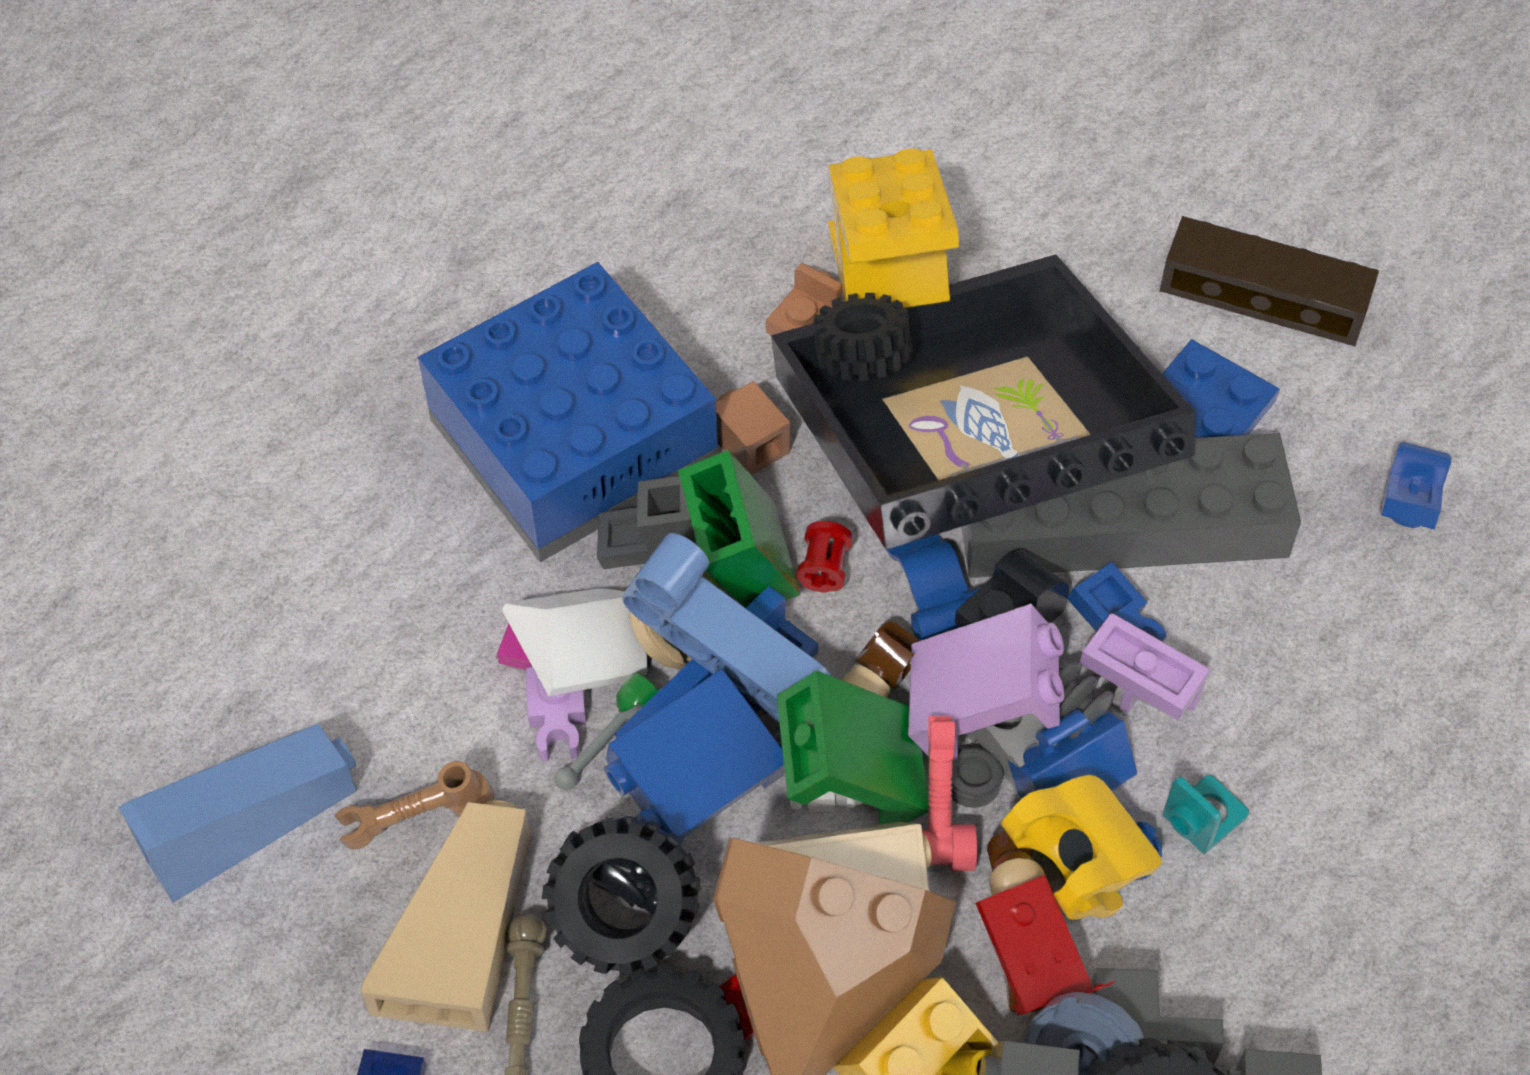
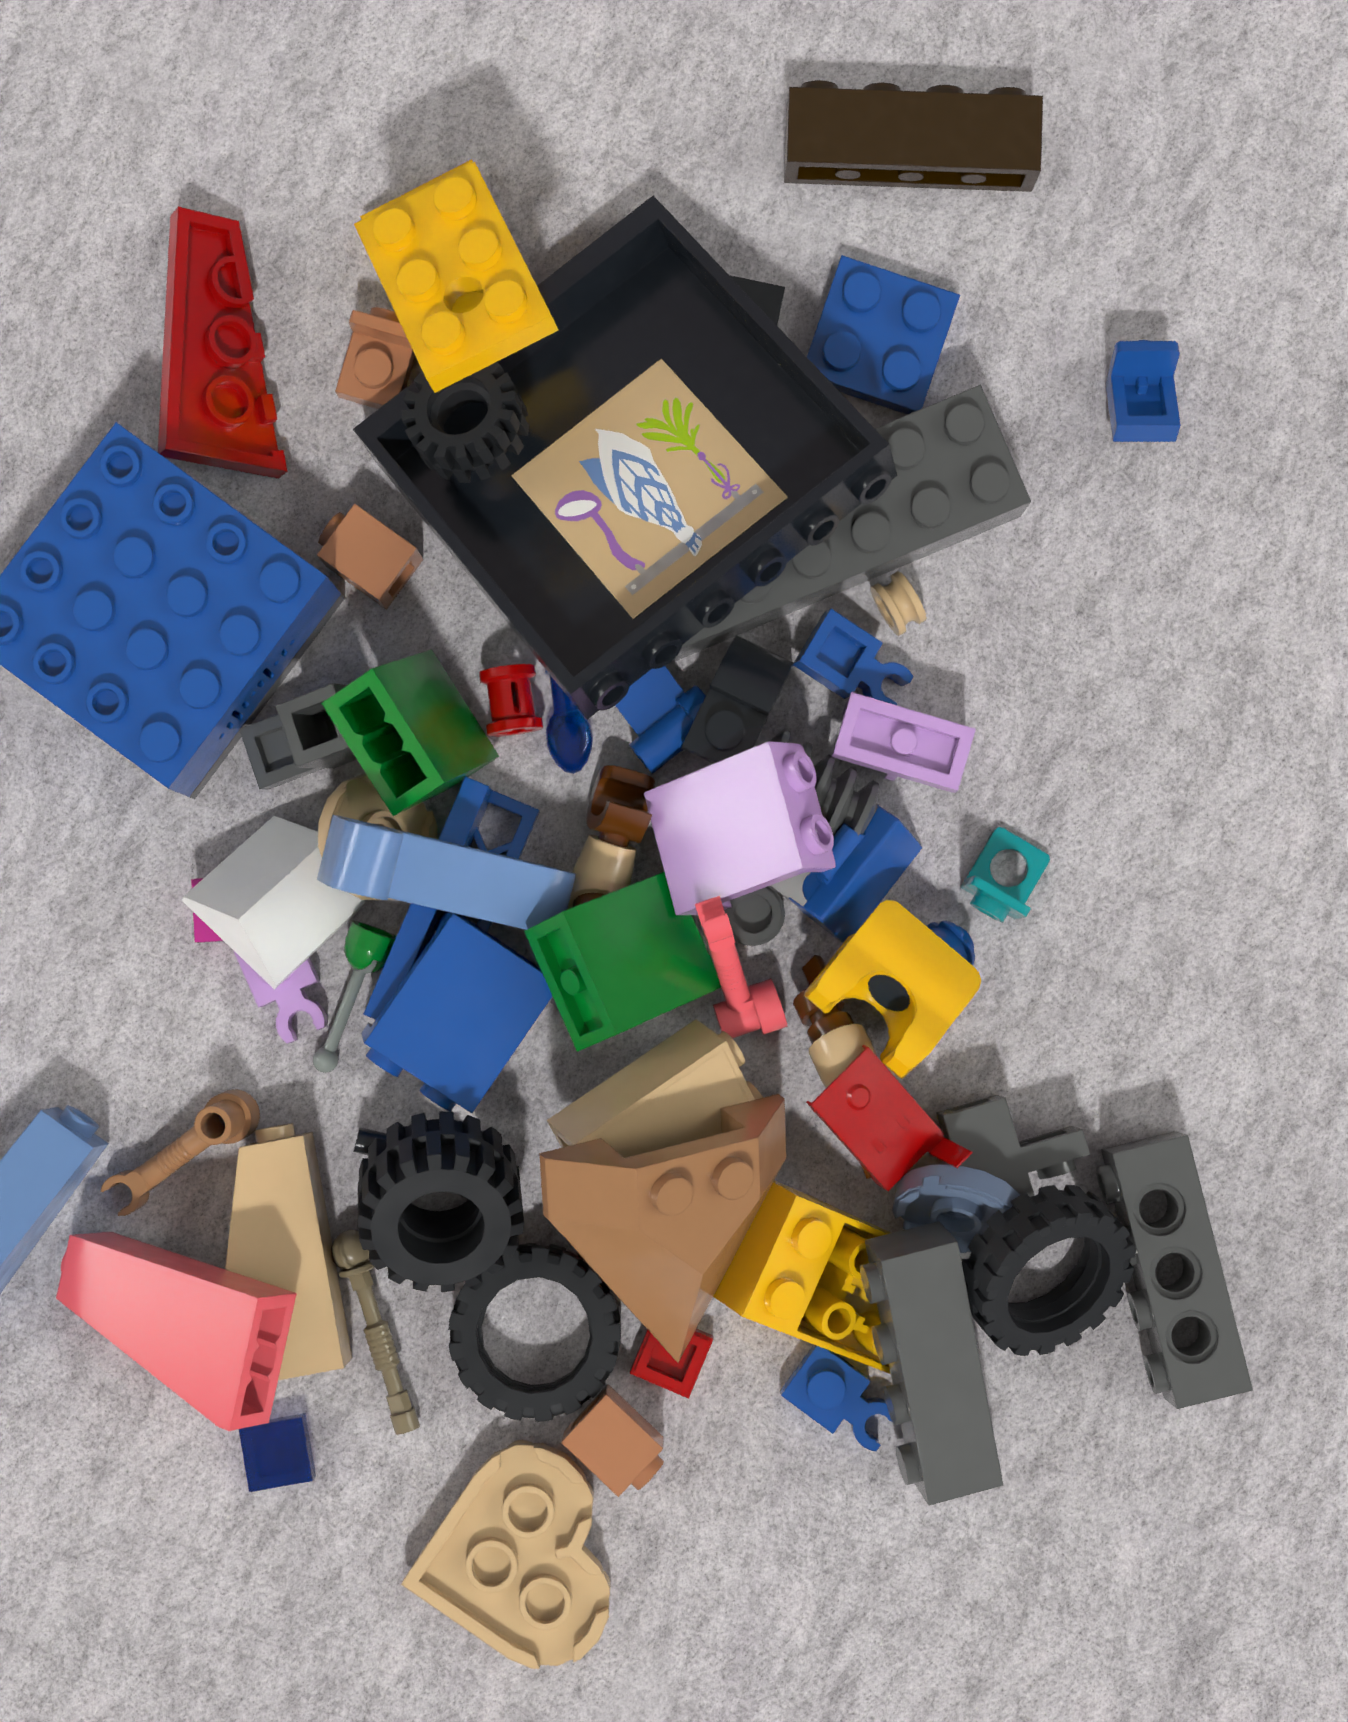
camera: 20 degrees left, 30 degrees up
(368, 912) = (184, 1321): none -> coral slope
(684, 270) = (211, 363): none -> red wing
(863, 597) = (567, 732): none -> clear blue piece
(1169, 579) = (898, 603): none -> tan bush

